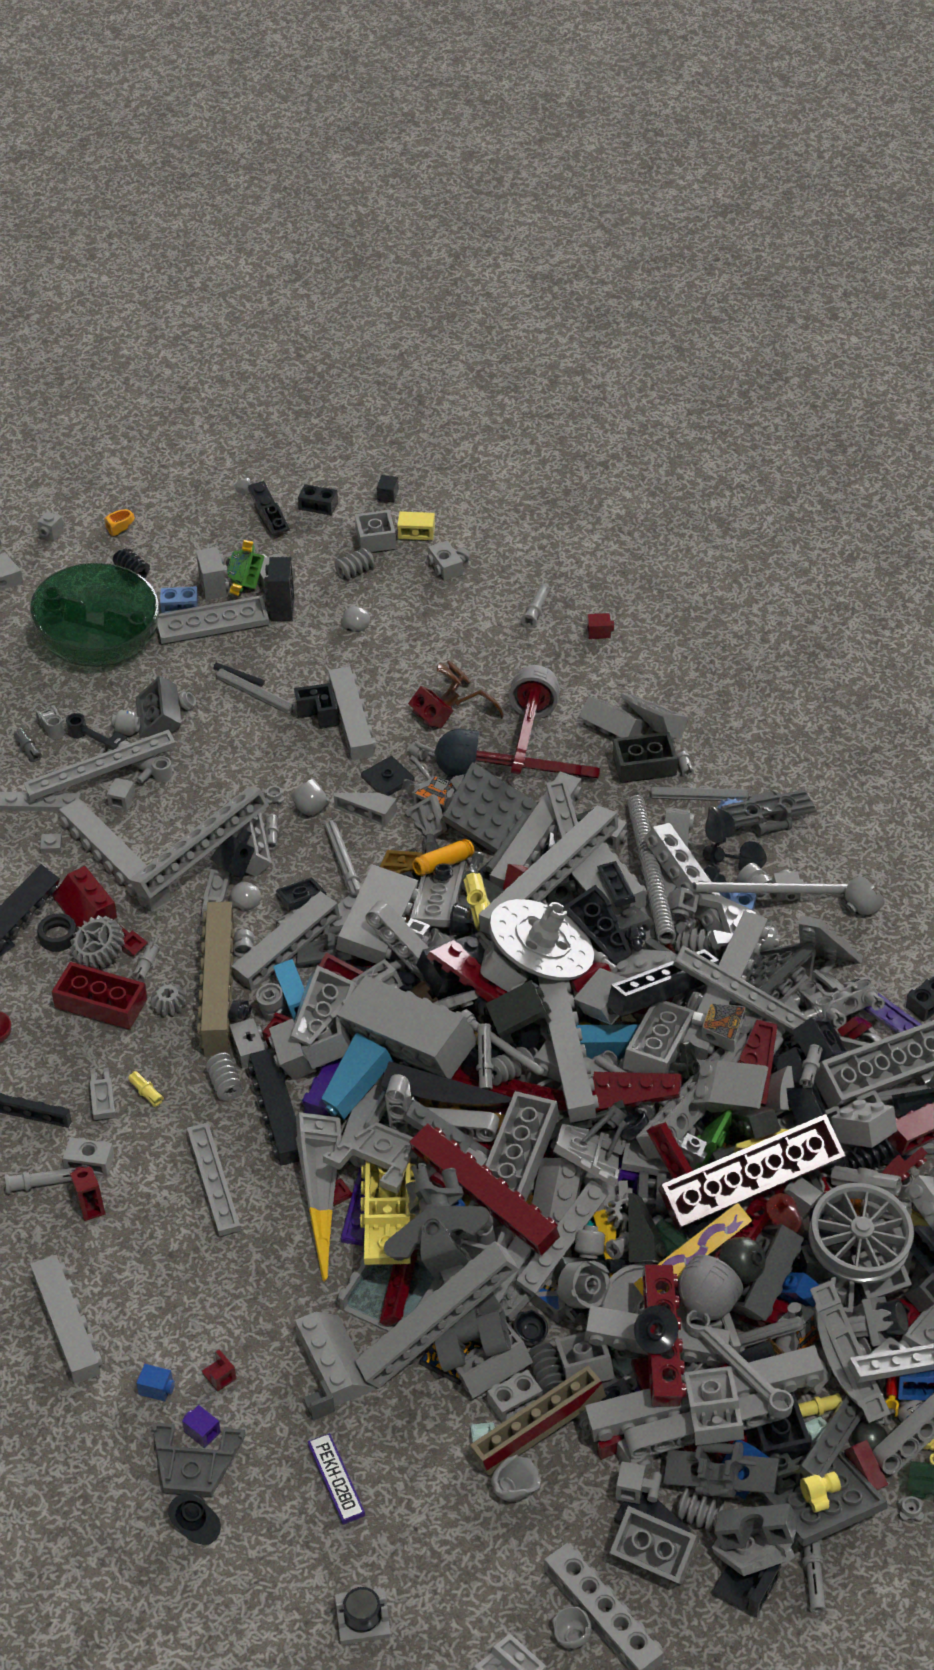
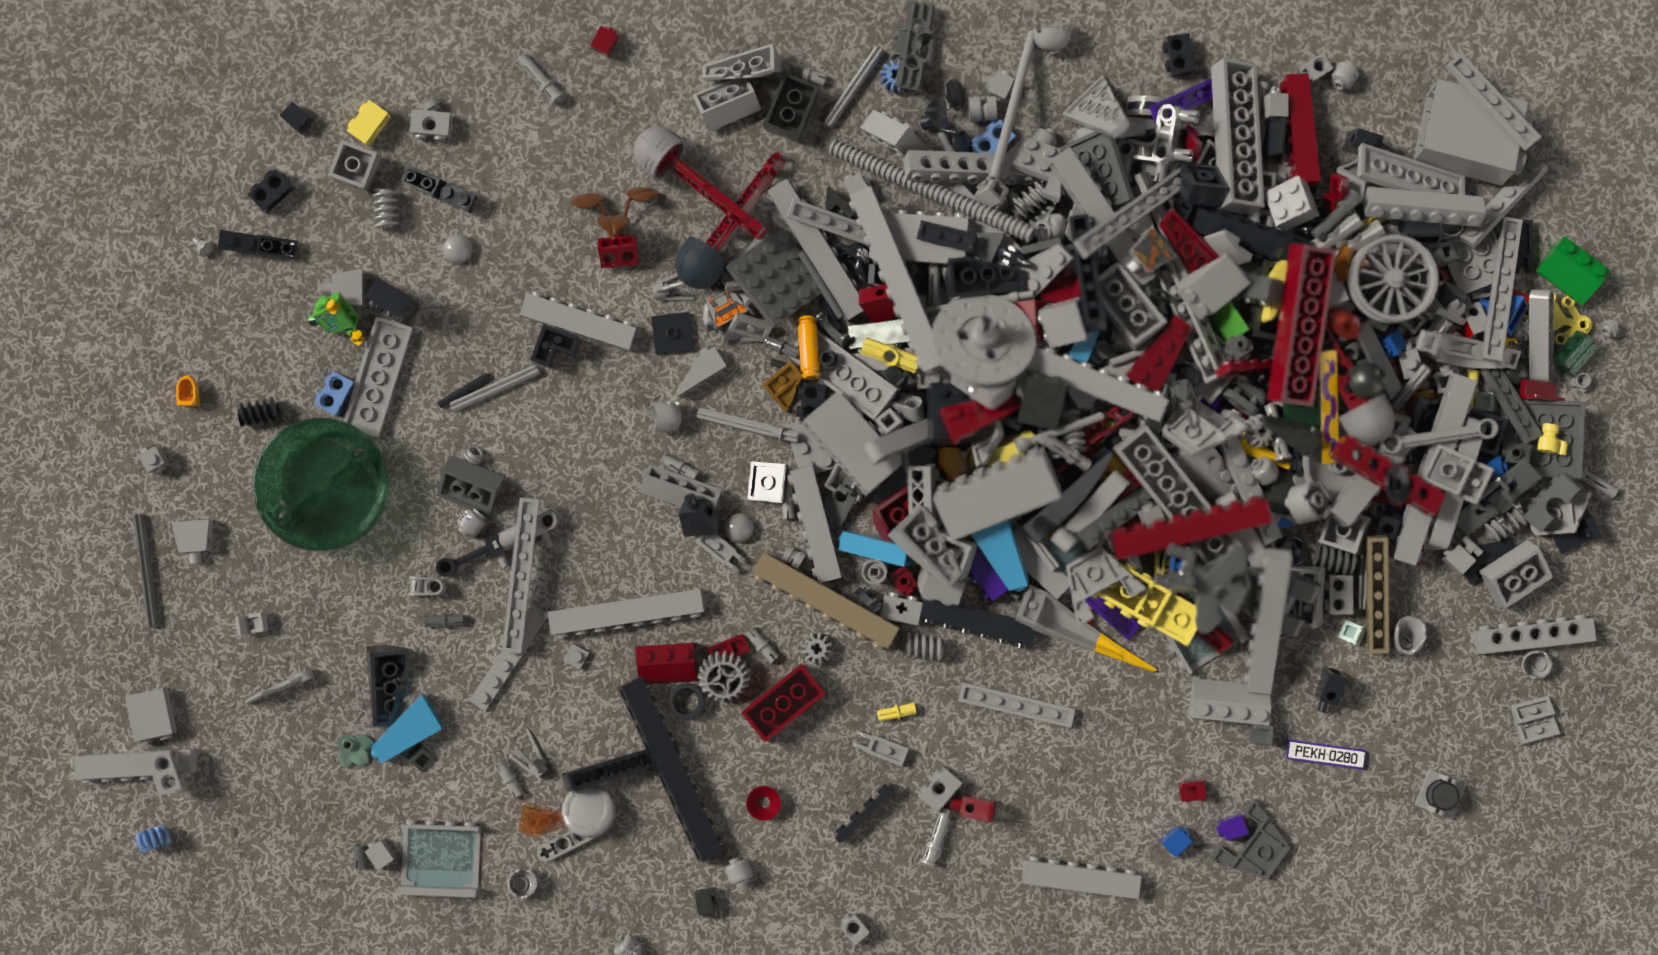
camera: 60 degrees left, 40 degrees up
(121, 794) = (556, 569): light grey brick -> none
(194, 1518) = (1302, 869): black piece -> none
(199, 842) = (686, 550): light grey brick -> none
(212, 573) = (323, 348): light grey brick -> none
(274, 794) = (630, 442): light grey plate -> none
(395, 585) = (439, 189): none -> black slope
(409, 1435) = (1330, 681): none -> black torso
(811, 1066) = (1229, 212): light grey pin -> none
(896, 1166) = (1343, 209): none -> dark grey pin

